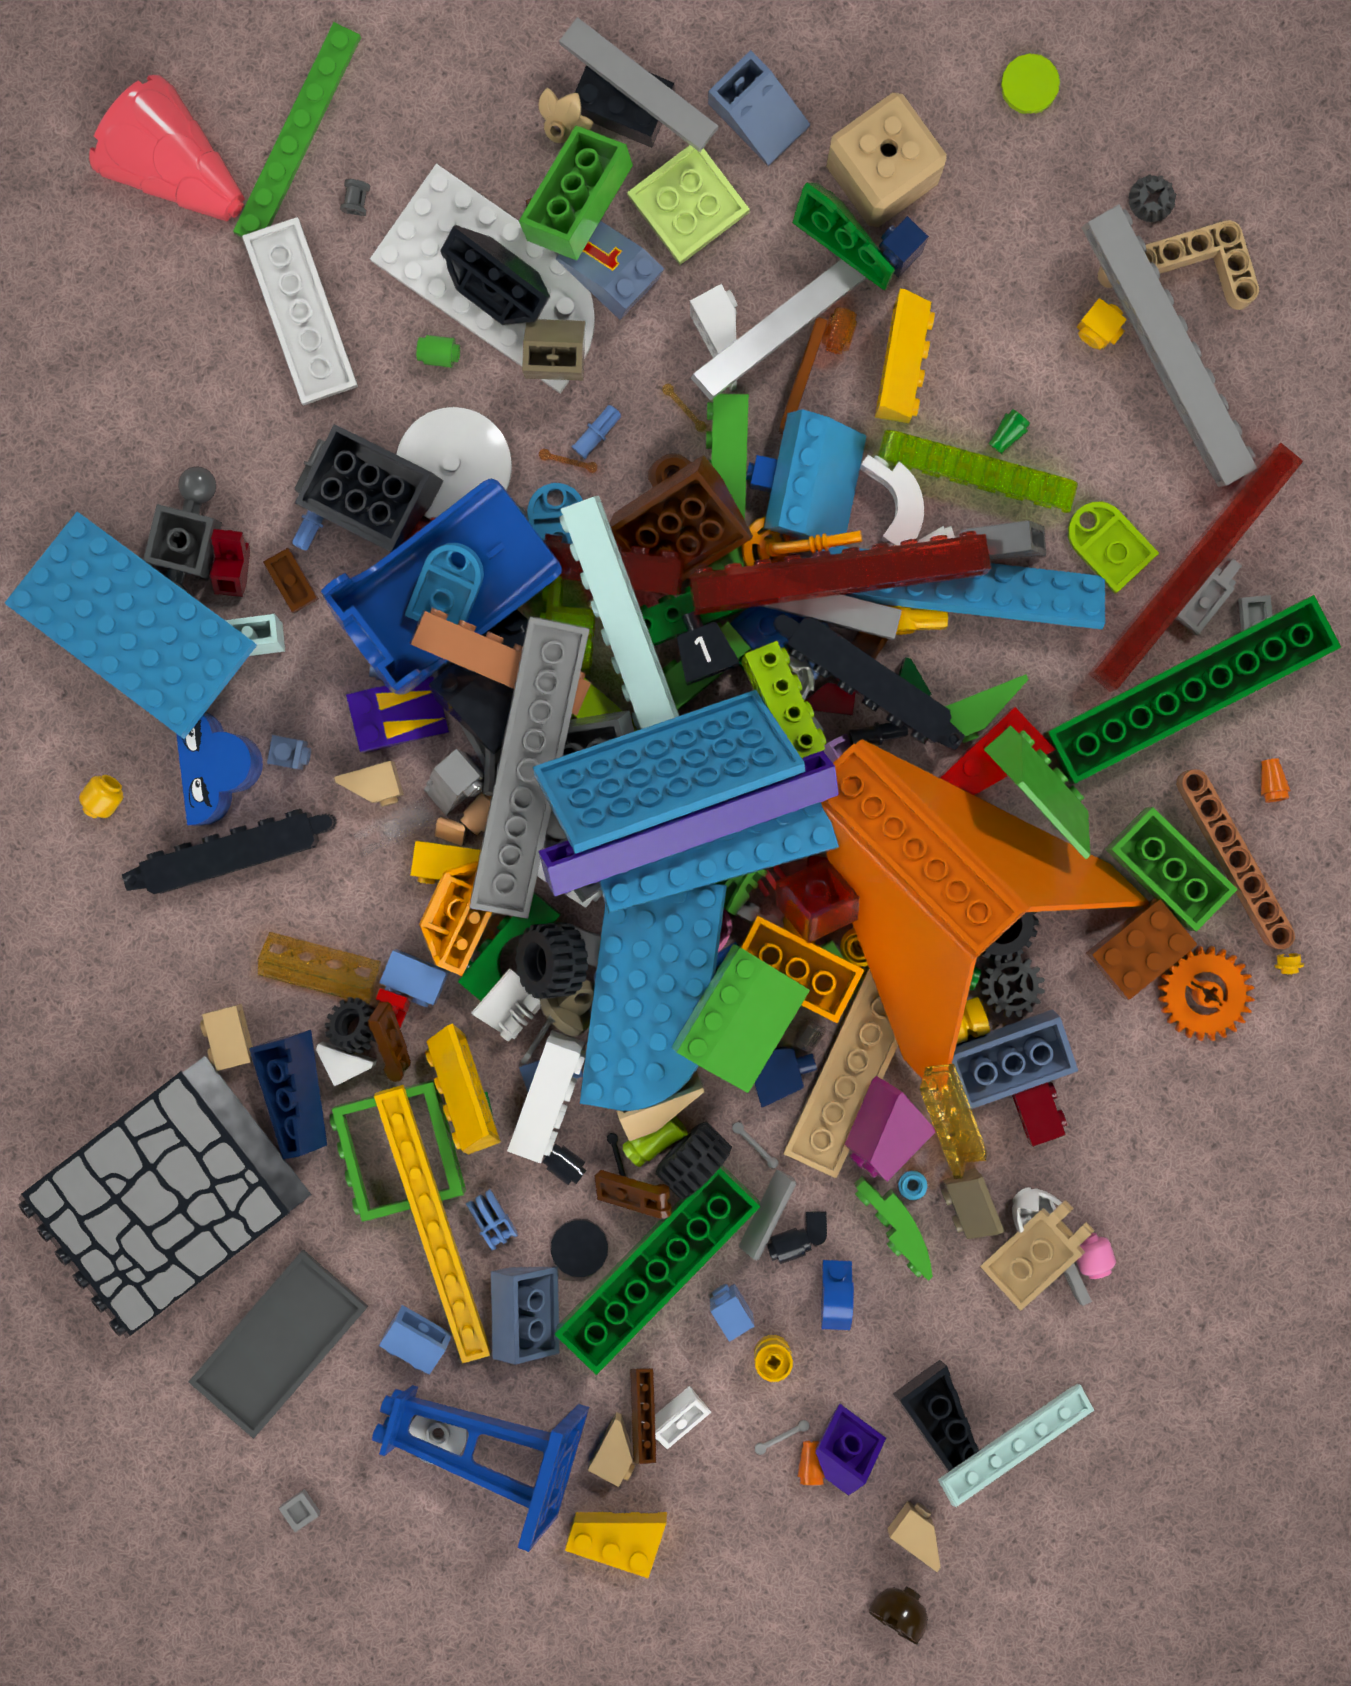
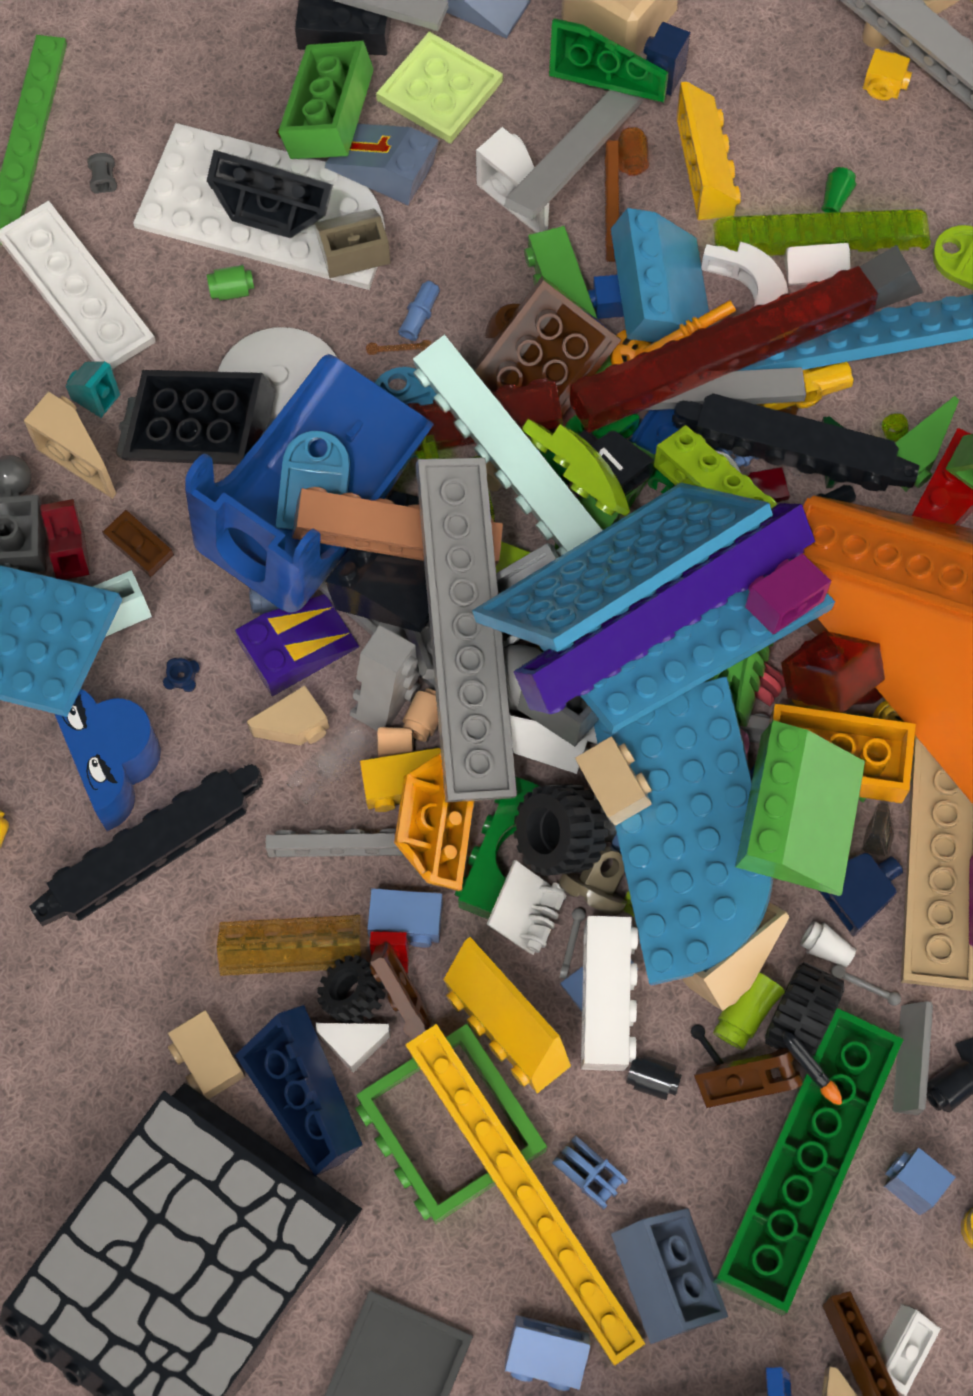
camera: 15 degrees left, 20 degrees down
(250, 460) = (64, 439): none -> tan slope
(289, 420) = (93, 387): none -> teal slope
(289, 752) = (186, 719): sand blue bracket -> none
(291, 703) = (177, 666): none -> dark blue plate
(307, 530) = (143, 480): medium blue axle -> none
(366, 895) = (323, 843): none -> light grey plate
(561, 113) = (288, 41): tan plate -> none
(579, 1247) = (706, 1174): black tile -> none
(604, 940) = (614, 780): none -> tan brick
(668, 390) = (479, 254): clear yellow hinge -> none
(679, 659) = (583, 464): none -> lime slope
(680, 1212) = (812, 1068): none -> black piece
(736, 1106) = (827, 944): none -> white cone
(796, 836) = (787, 593): none -> magenta brick
(963, 500) = (815, 262): none -> white slope
(971, 677) = (896, 422): none -> clear neon green hinge

